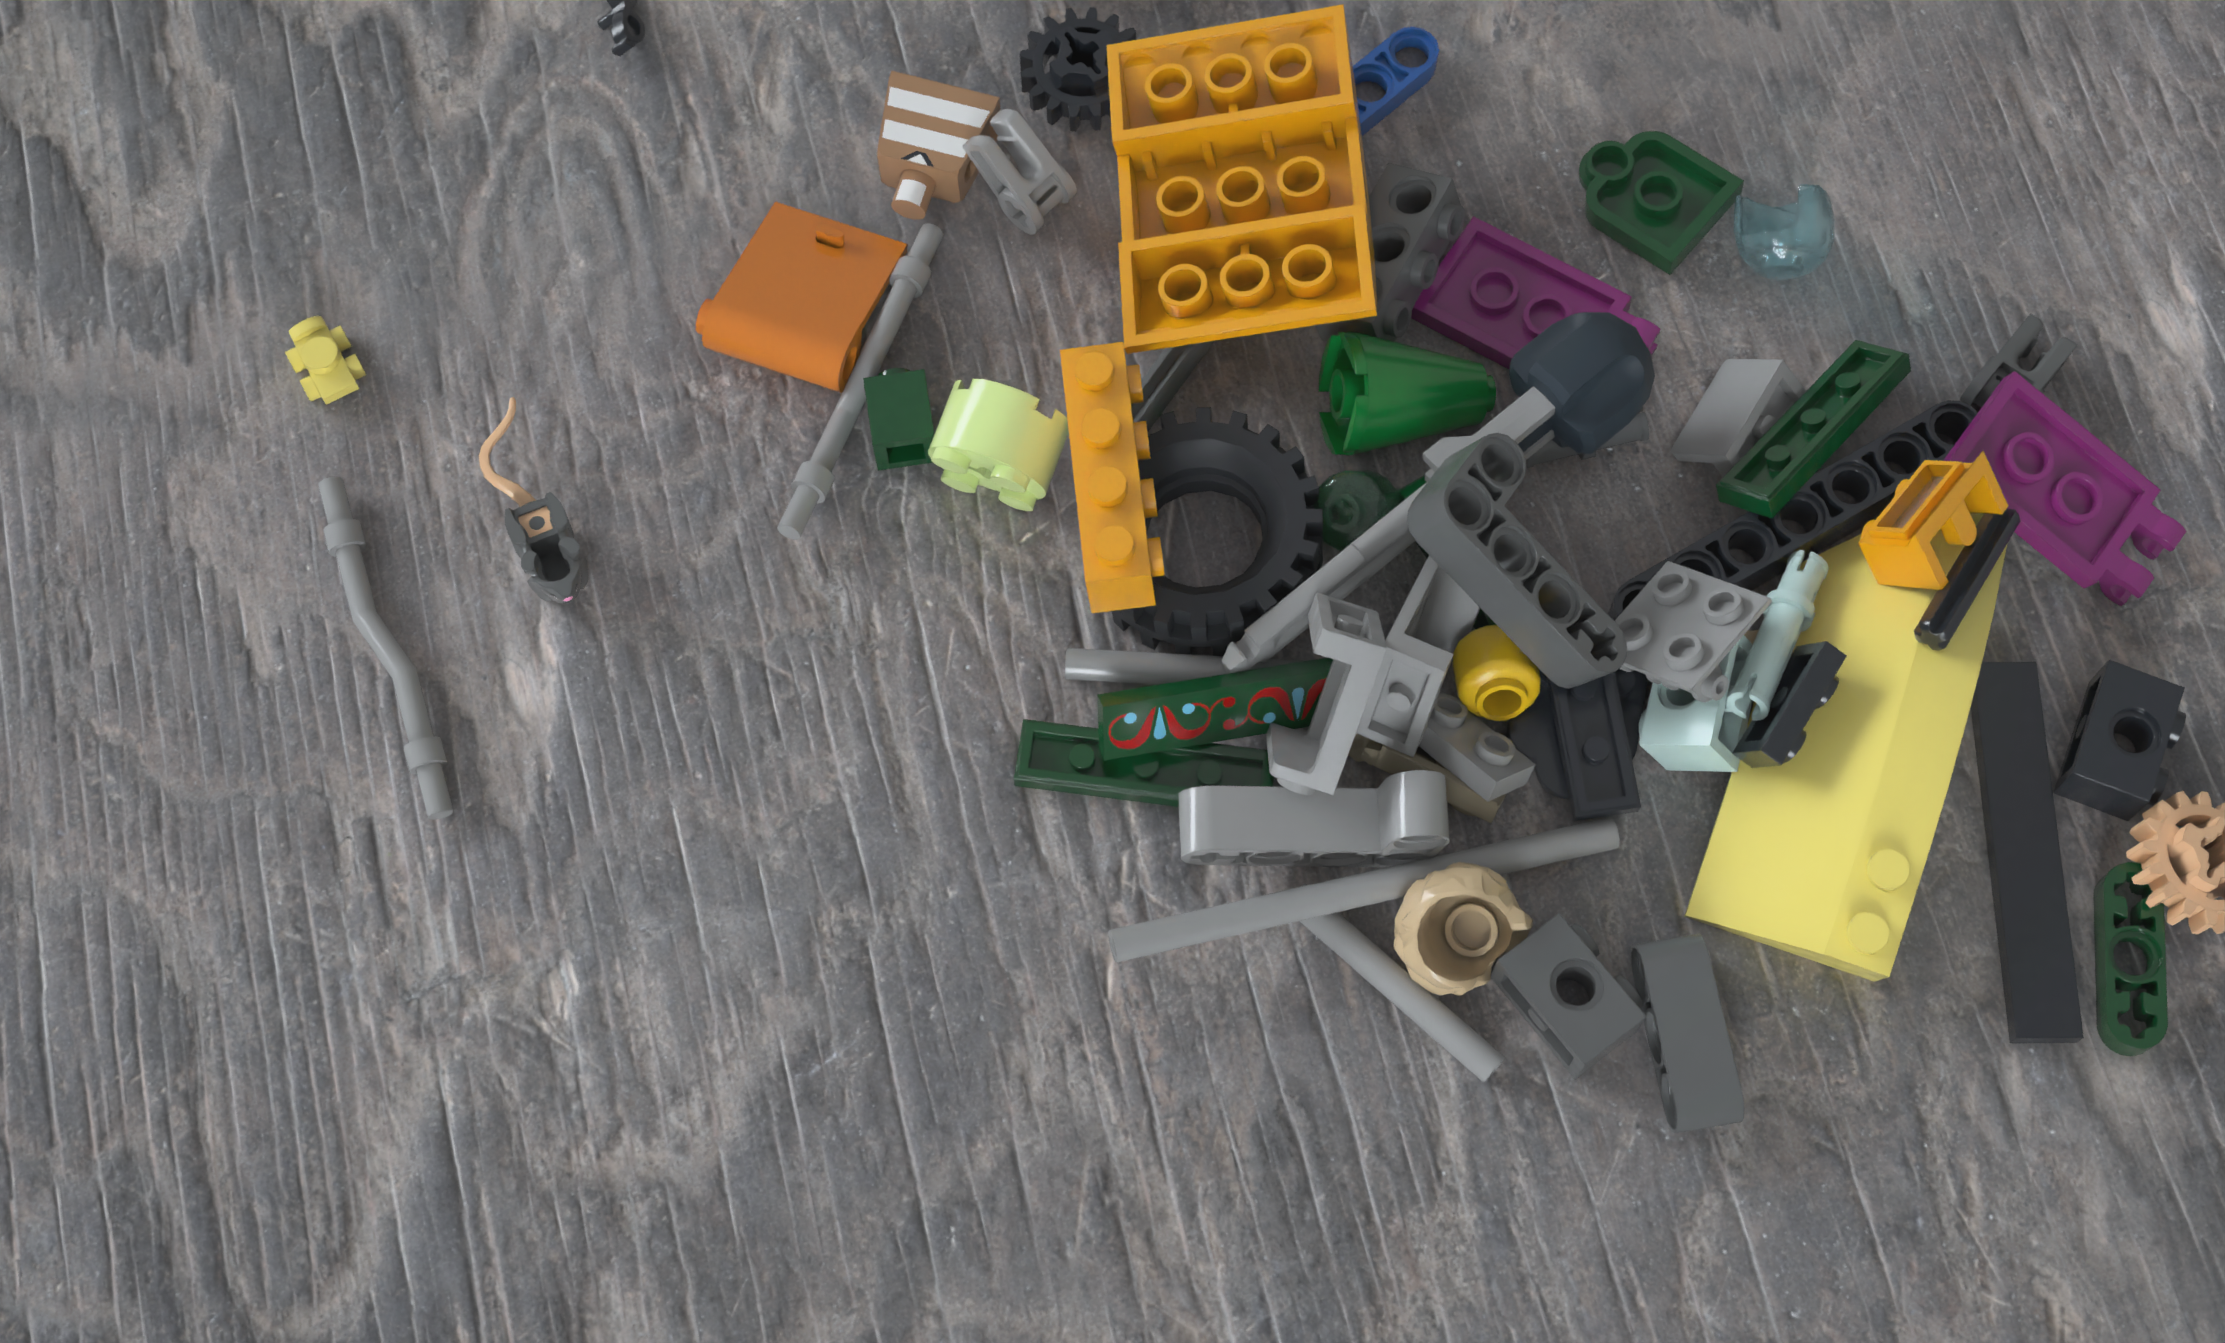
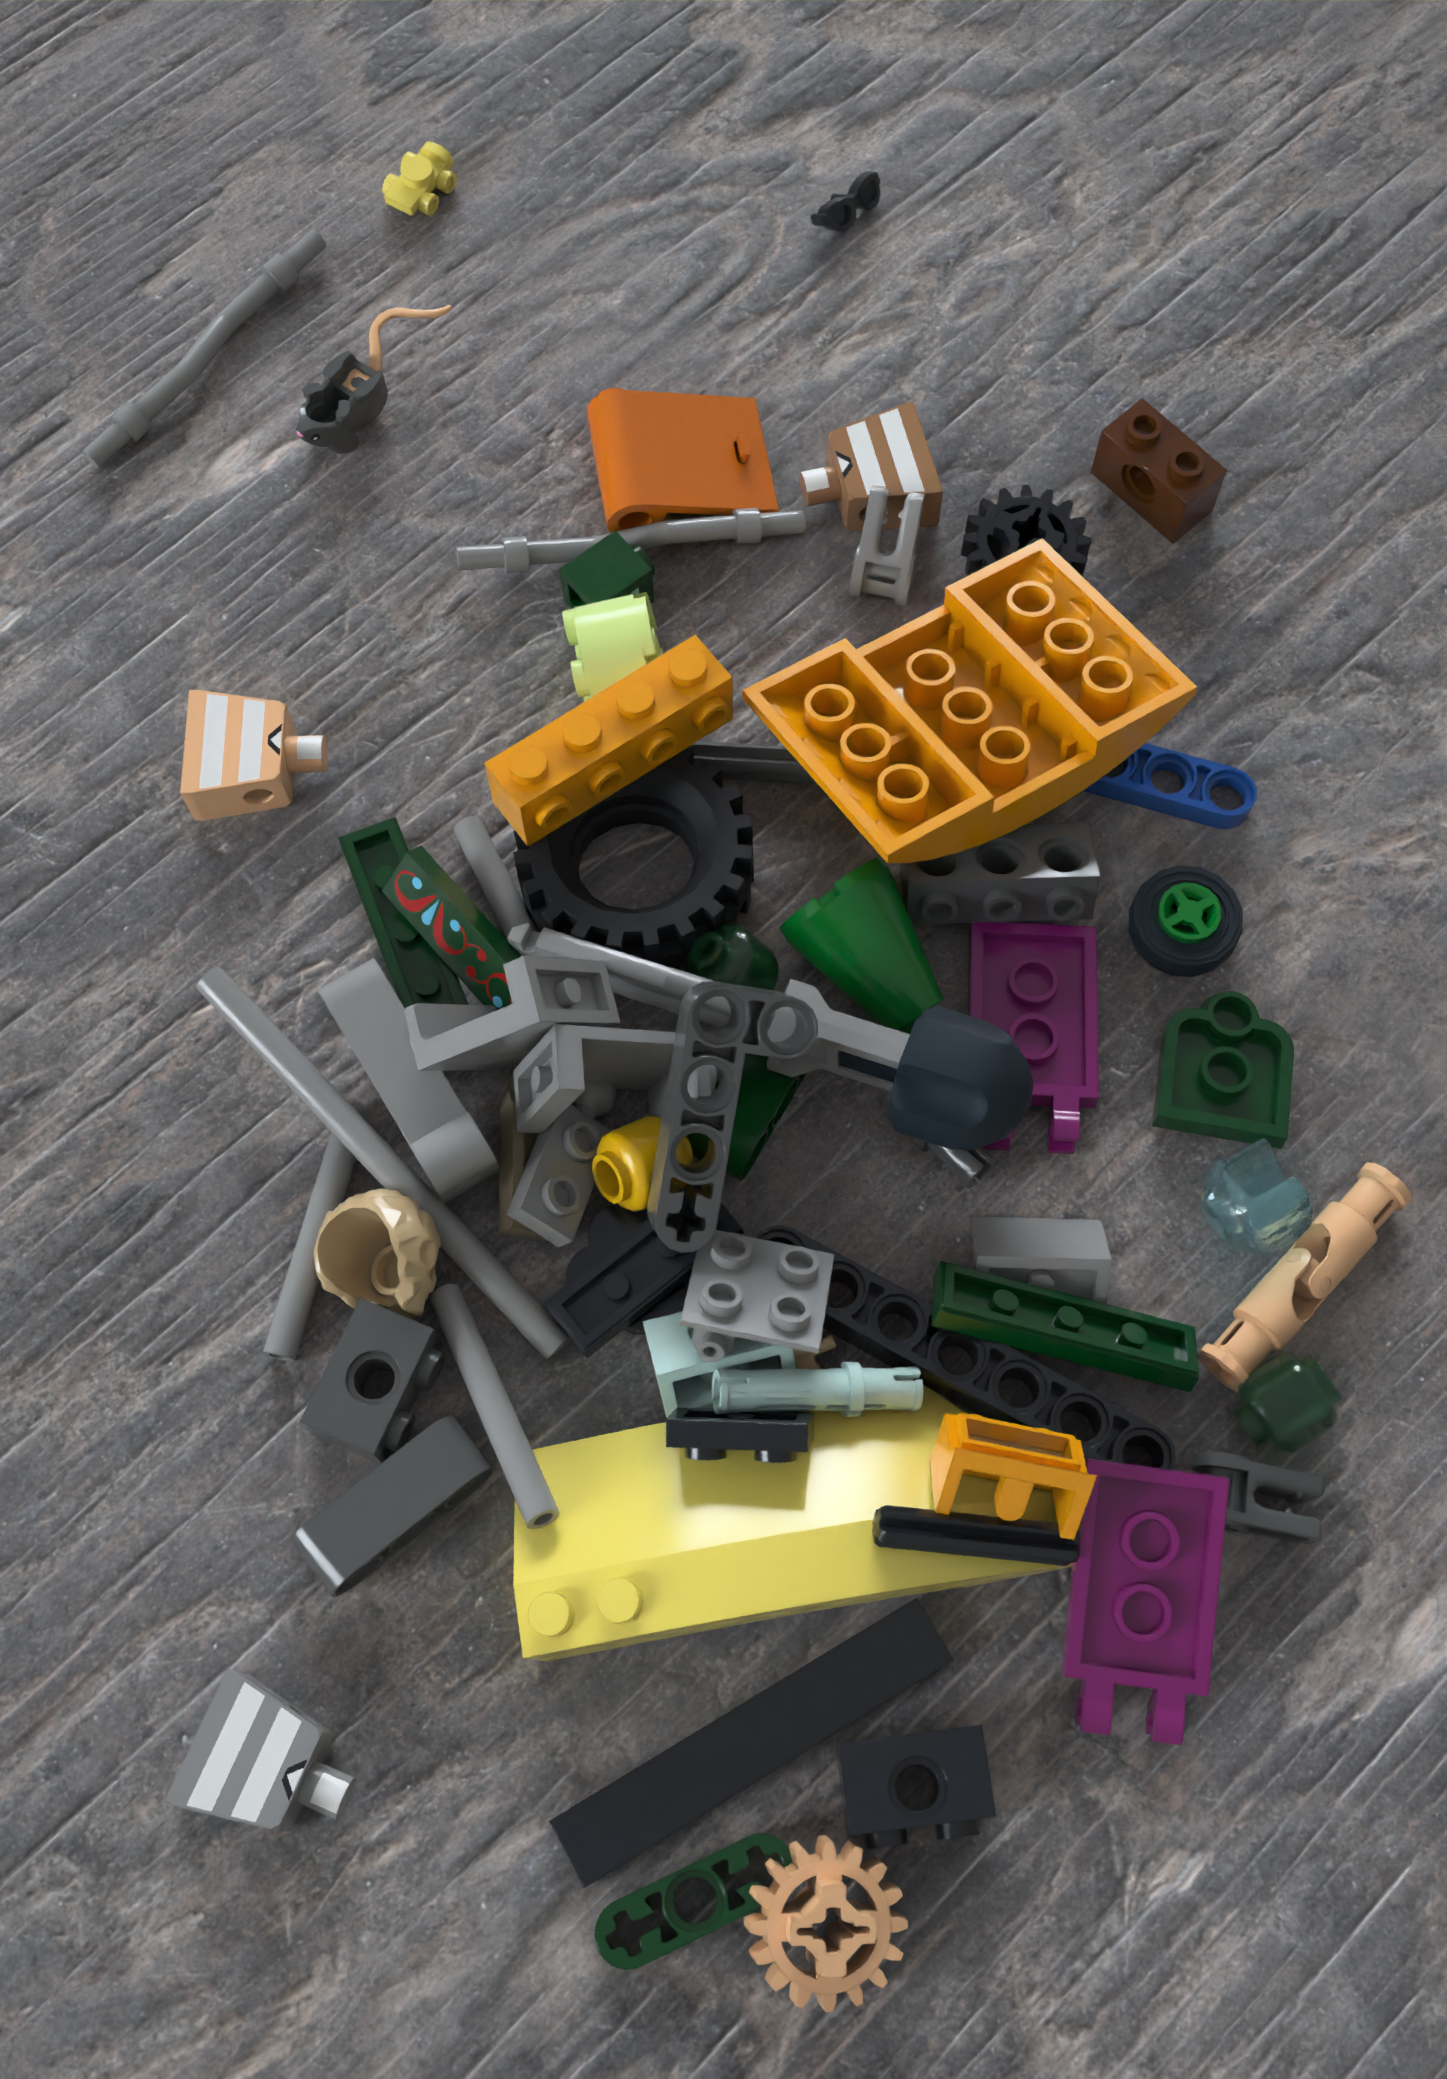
camera: 60 degrees right, 0 degrees up
(877, 818) = (243, 755): none -> light nougat torso
(1529, 143) = (1188, 898): none -> black wheel
(1650, 902) = (494, 1407): none -> light grey piece
(1856, 1248) = (259, 1760): none -> torso
(1868, 260) = (1311, 1269): none -> light nougat piece
(1956, 306) = (1288, 1402): none -> clear green head

